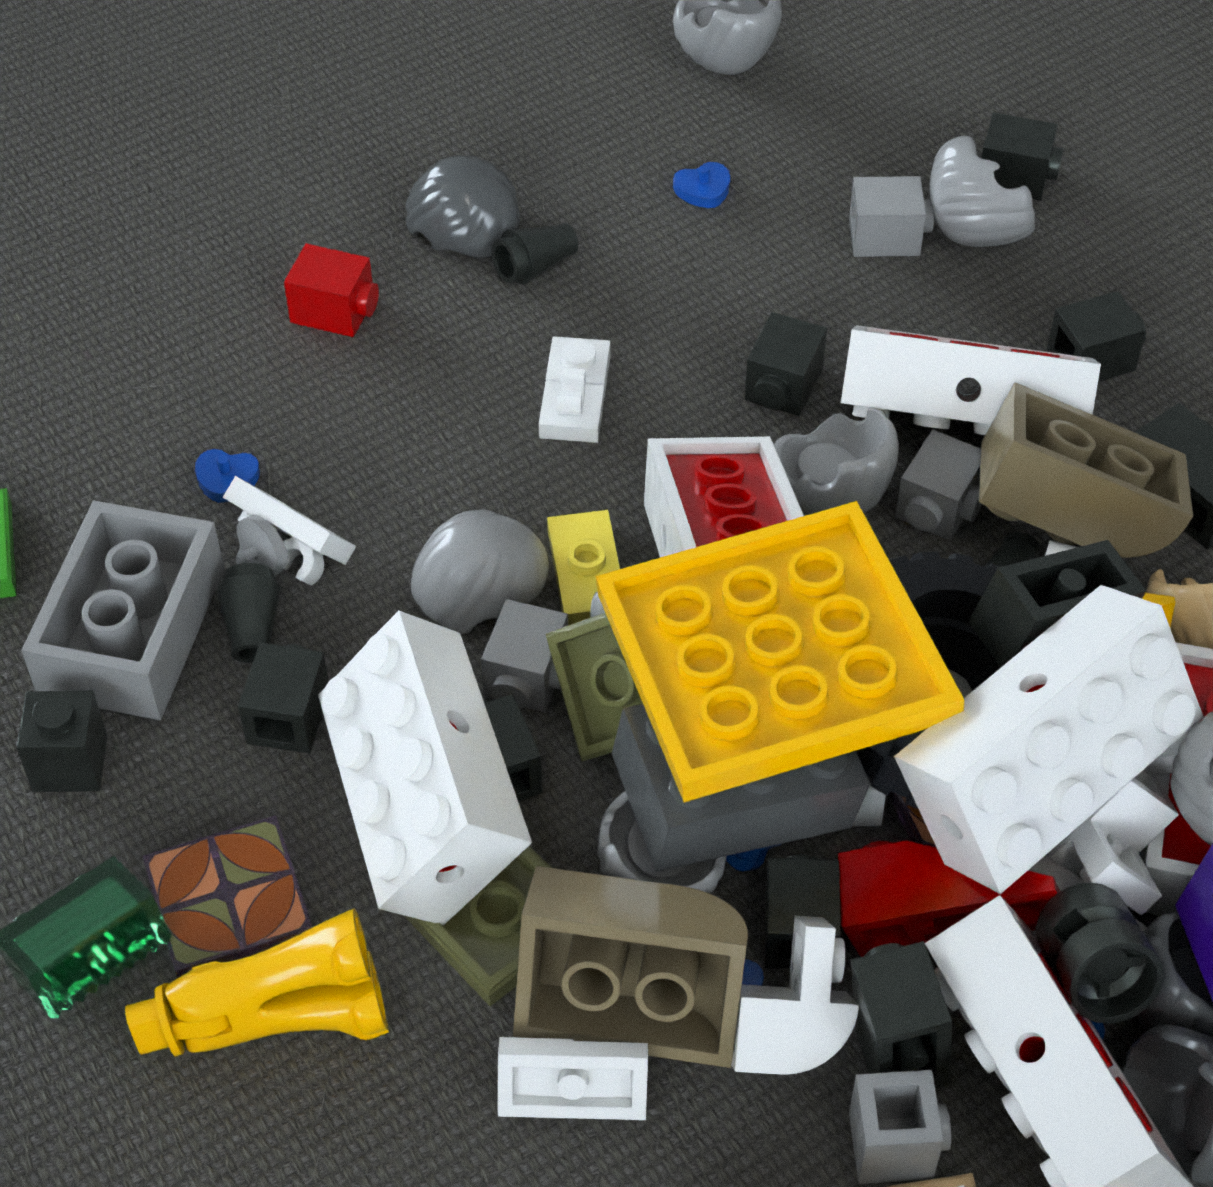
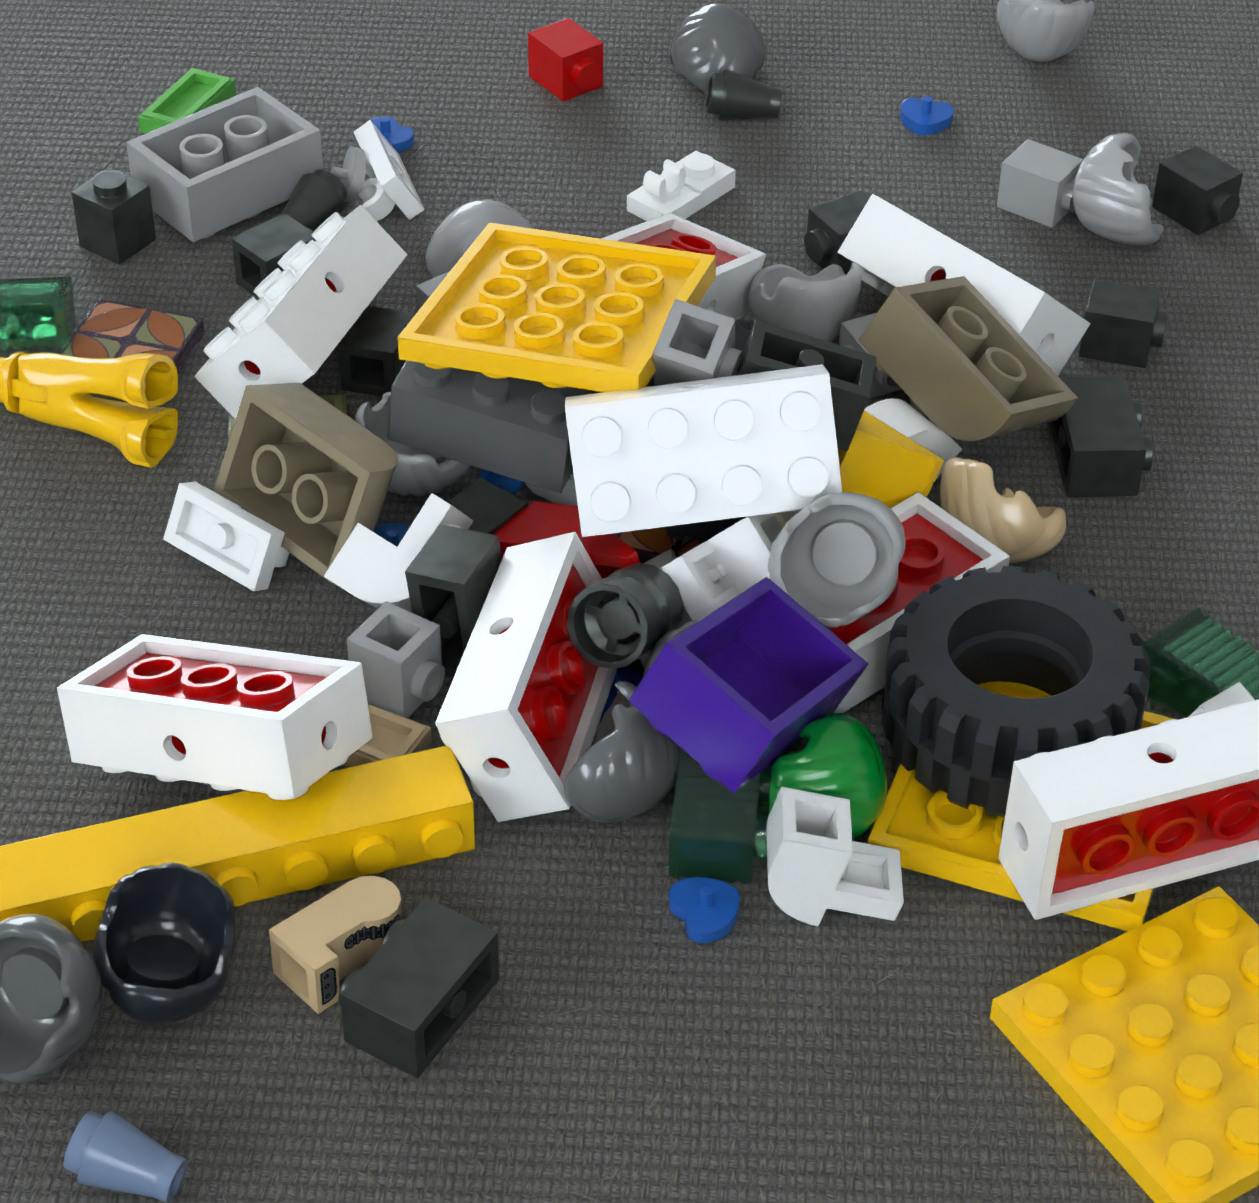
camera: 35 degrees right, 10 degrees down
(969, 627) = (695, 346): none -> light grey brick

